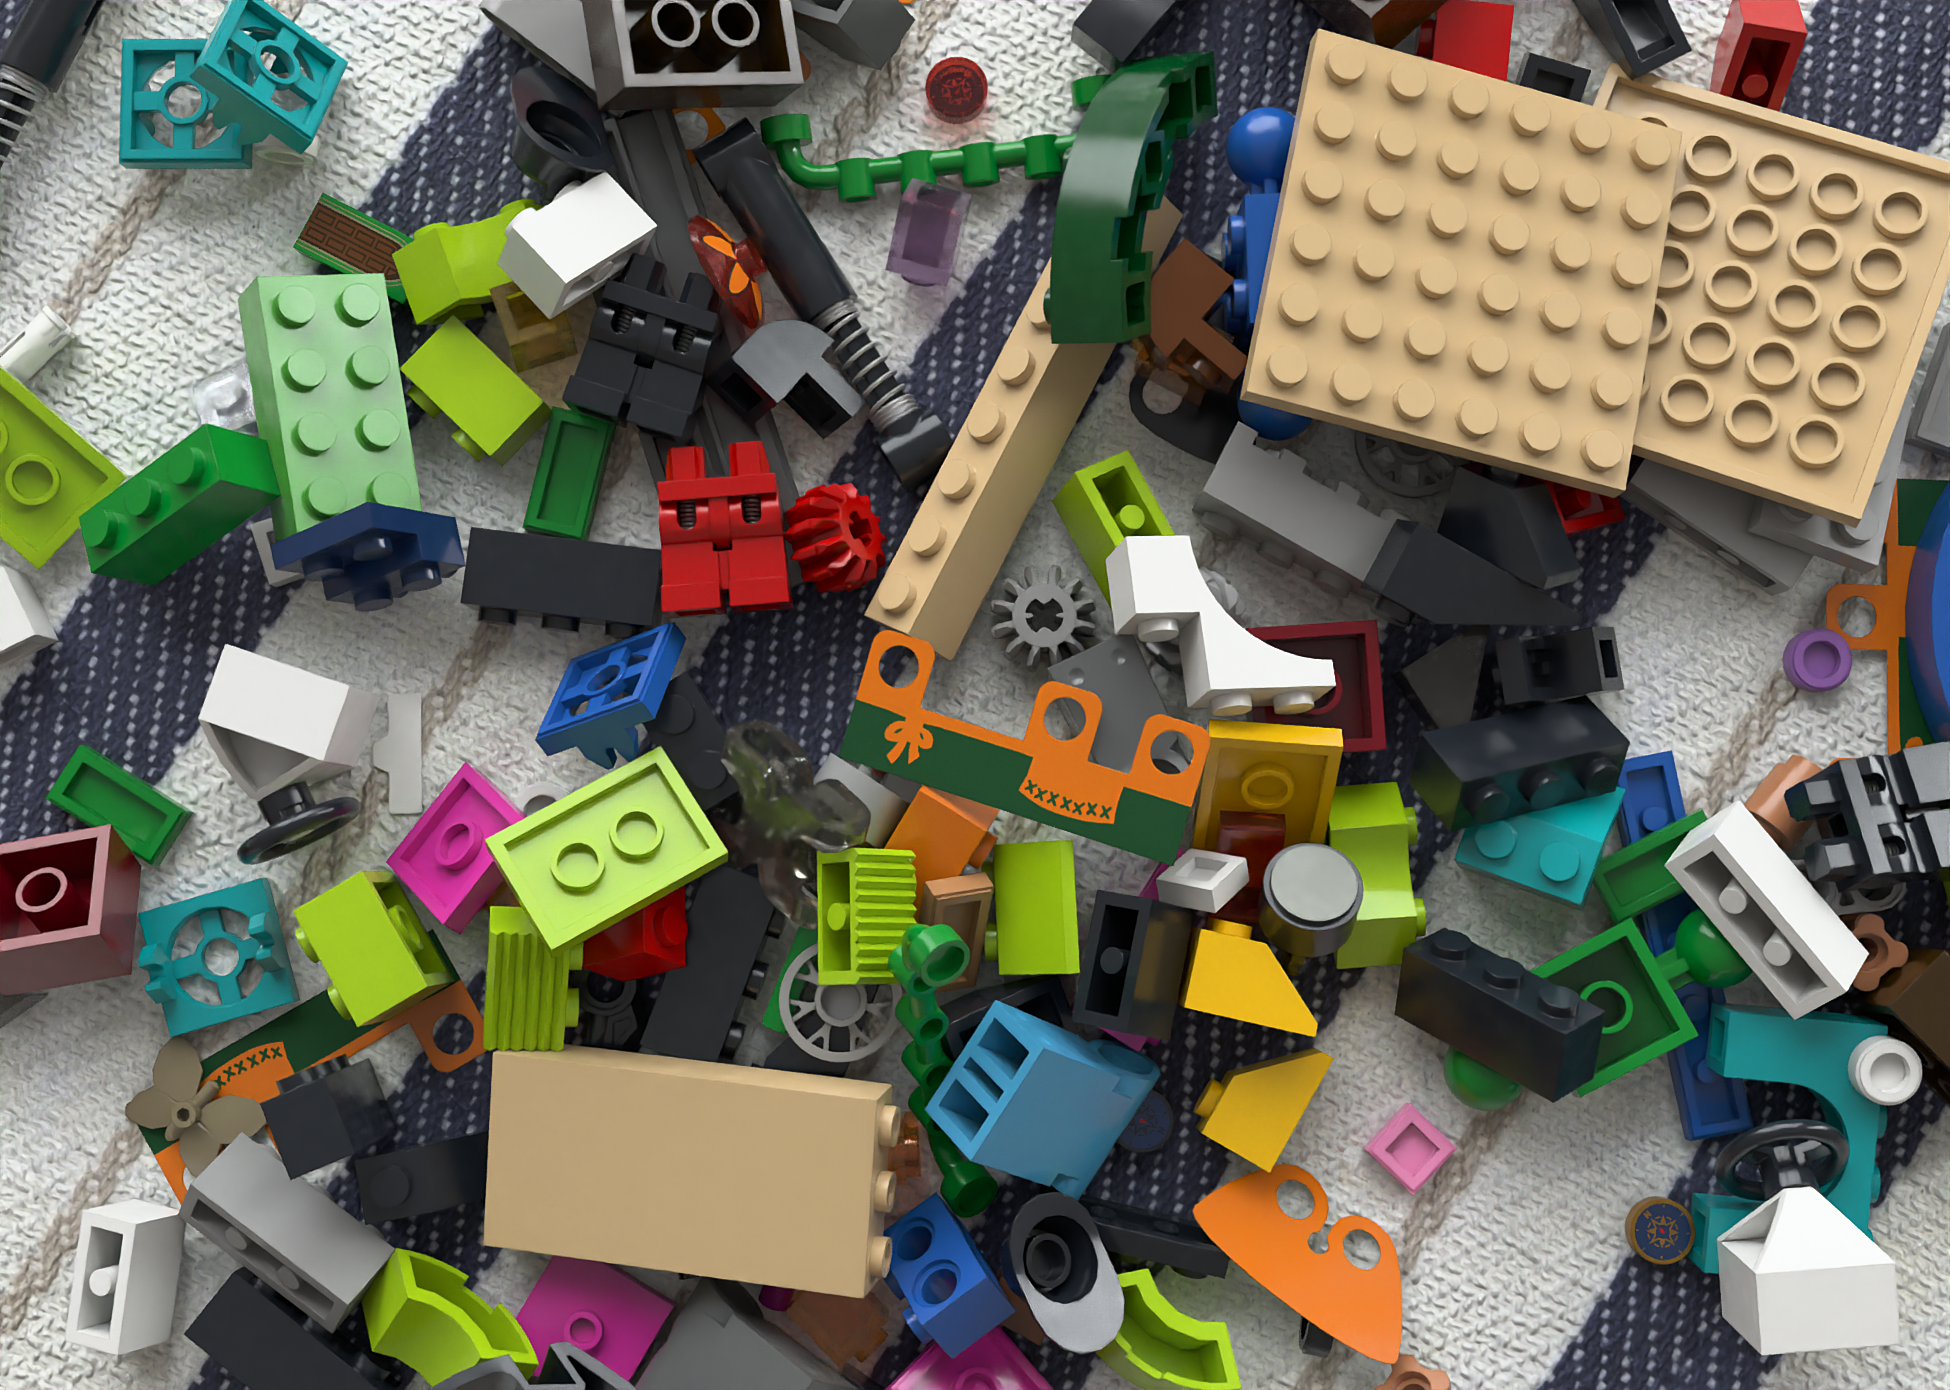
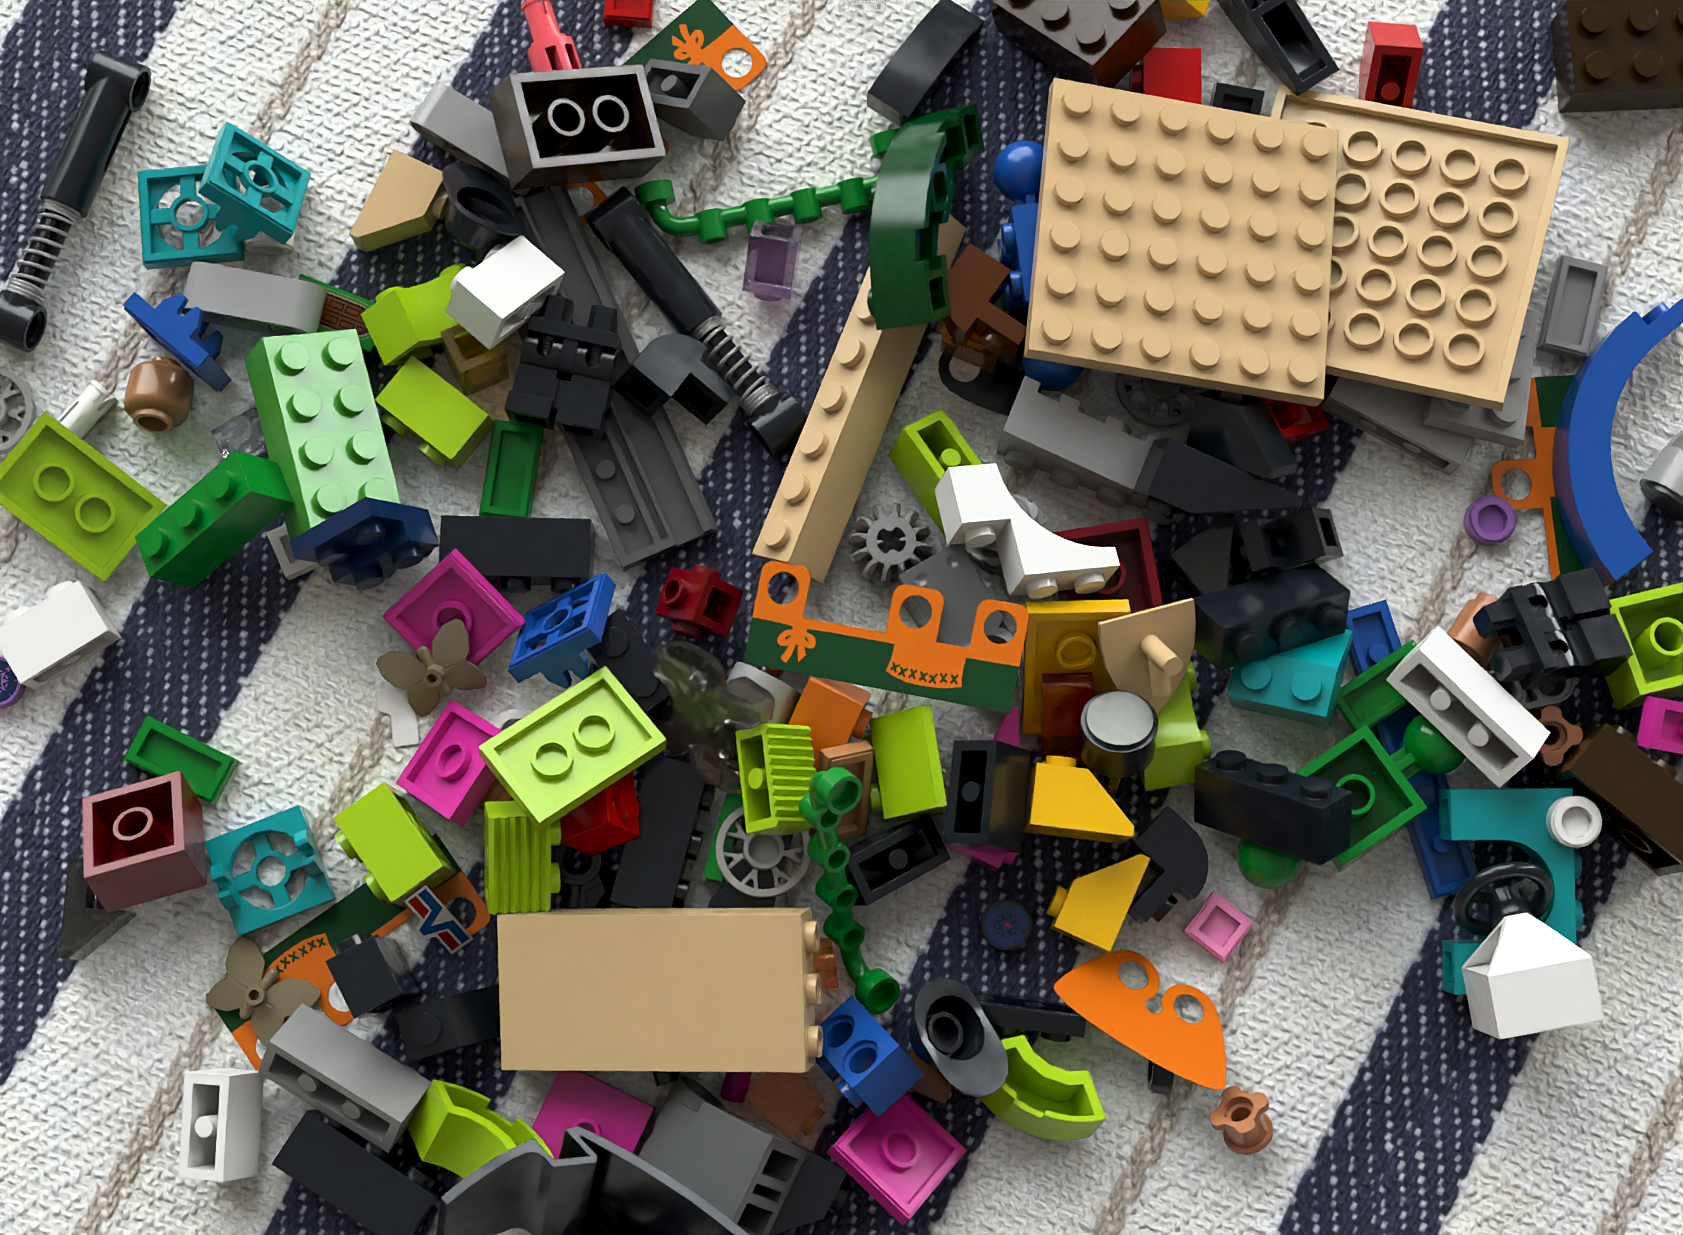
camera: 10 degrees left, 5 degrees down
(127, 333) = (158, 395): none -> medium nougat head
(161, 262) = (181, 336): none -> blue piece
(256, 223) = (254, 300): none -> light grey beam
(278, 736) = (306, 689): white piece -> none
(420, 1045) = (437, 920): none -> sticker
(447, 728) = (435, 672): none -> dark tan piece
(457, 114) = (401, 204): none -> tan slope
(476, 660) = (450, 593): none -> dark pink plate
(692, 569) = (615, 529): red hips -> none
(730, 269) = (625, 300): clear red dish -> none
(790, 670) = (698, 602): none -> dark red brick
(835, 538) = (724, 497): red gear -> none
(956, 90) = (782, 151): clear red tile -> none
(1040, 1099) = (926, 909): dark azure piece -> none
(1202, 880) = (1035, 727): white tile -> none
(1362, 796) = (1149, 650): none -> tan shield
(1370, 1061) = (1179, 860): none -> black brick
(1659, 1230) = (1419, 970): tile -> none

